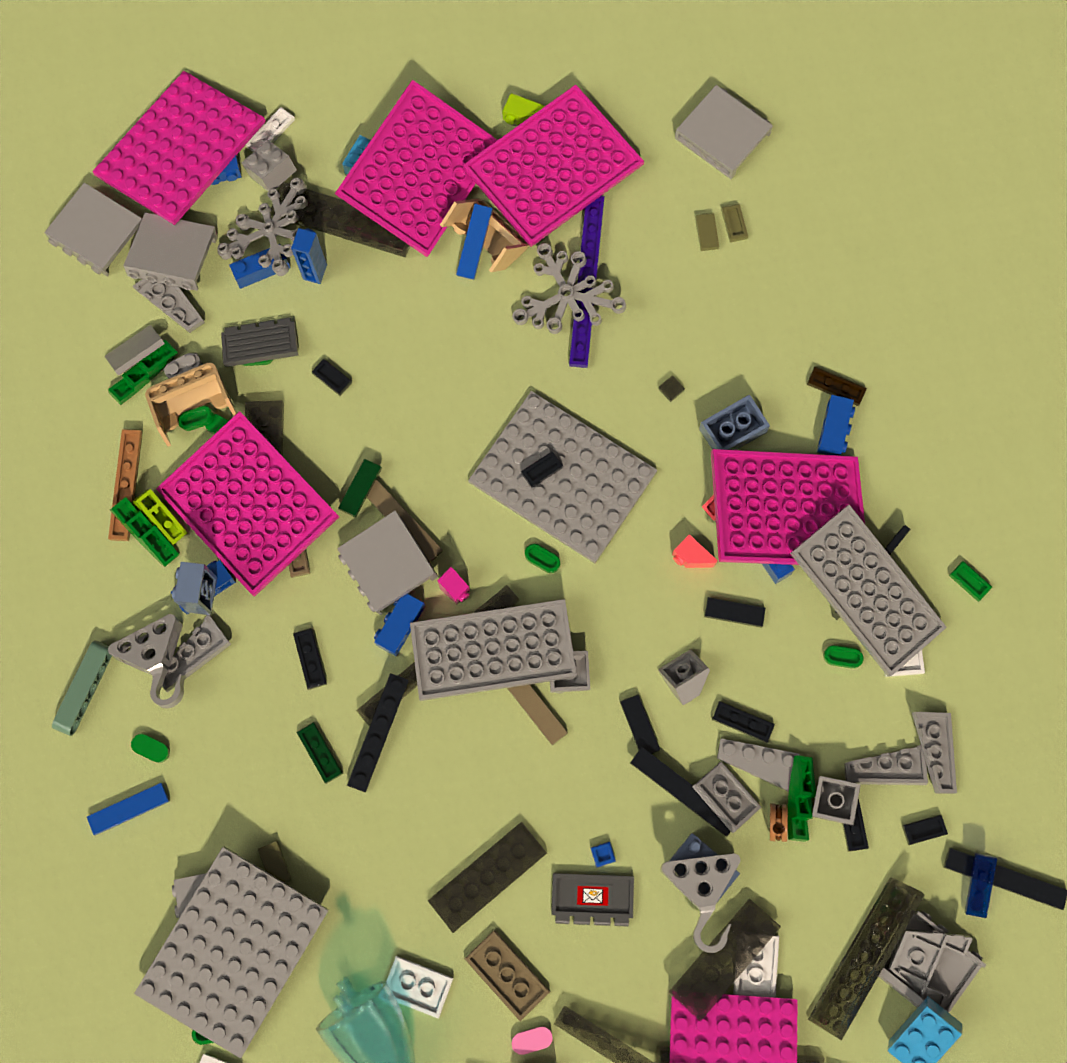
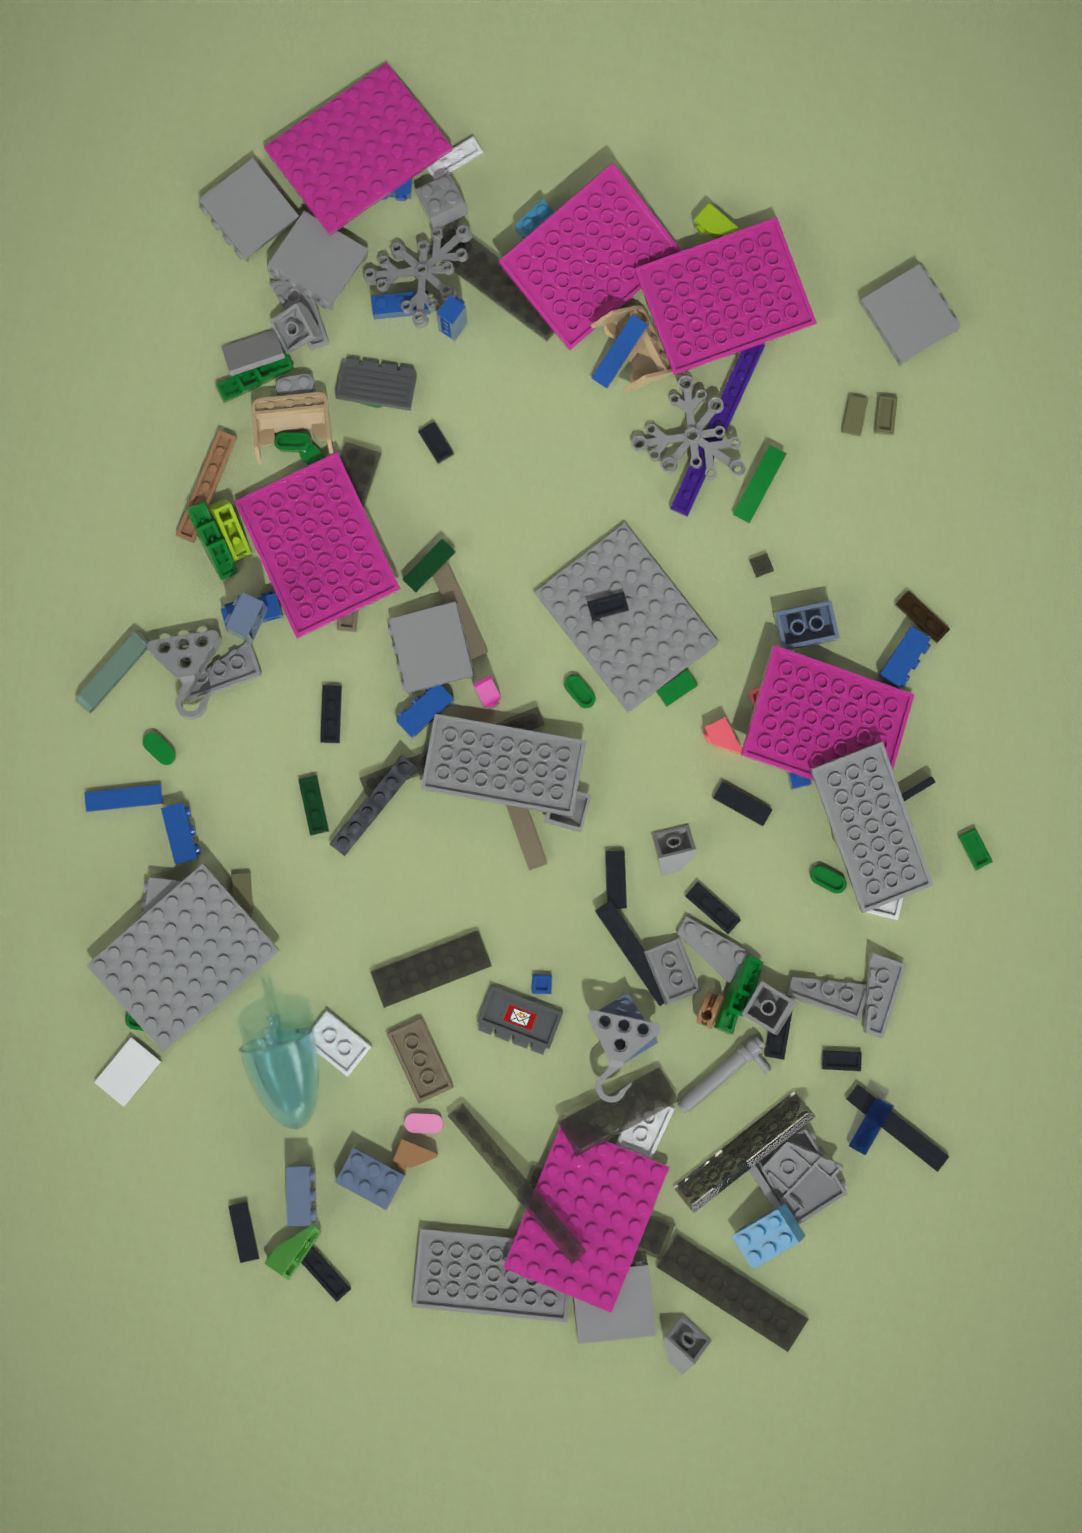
camera: 15 degrees right, 10 degrees up
(166, 314) = (295, 327): none -> light grey slope
(194, 825) = (181, 833): none -> blue brick
(633, 525) = (677, 688): none -> green tile
(643, 316) = (759, 483): none -> green slope
(827, 857) = (743, 1055): none -> light grey cylinder

